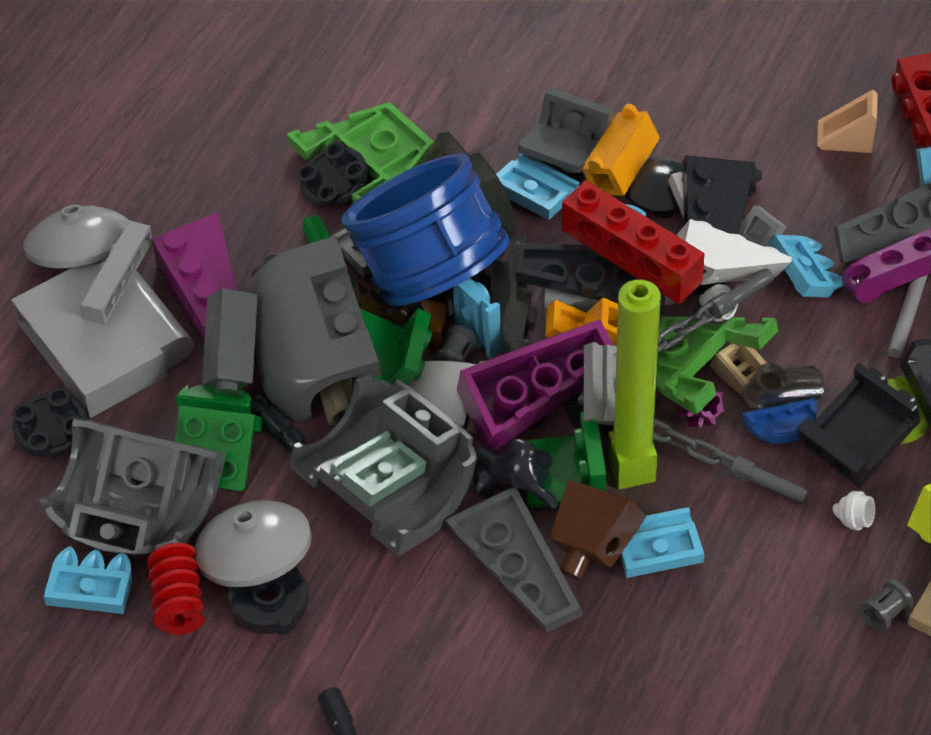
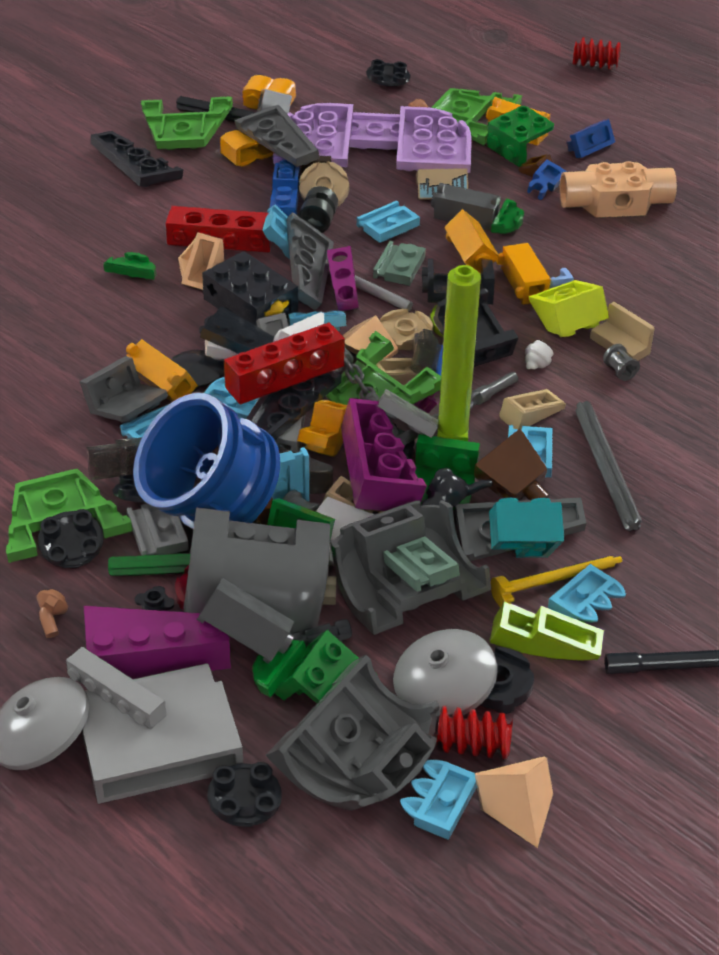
camera: 75 degrees left, 10 degrees down
(113, 651) = (517, 796): none -> light nougat slope
(233, 193) = (50, 604): none -> nougat plate
(348, 625) = (545, 634): none -> lime slope
(405, 568) = (502, 588): none -> yellow piece
(424, 650) = (585, 593): none -> medium azure plate
(466, 553) = (527, 527): none -> teal brick
(675, 632) = (608, 466): none -> dark grey axle
(744, 510) = (529, 409): none -> tan slope
(794, 325) = (358, 336): none -> light nougat slope
(818, 183) = (249, 288): none -> black piece
(819, 63) = (132, 265): none -> green plate
(839, 354) = (404, 325): none -> tan tile

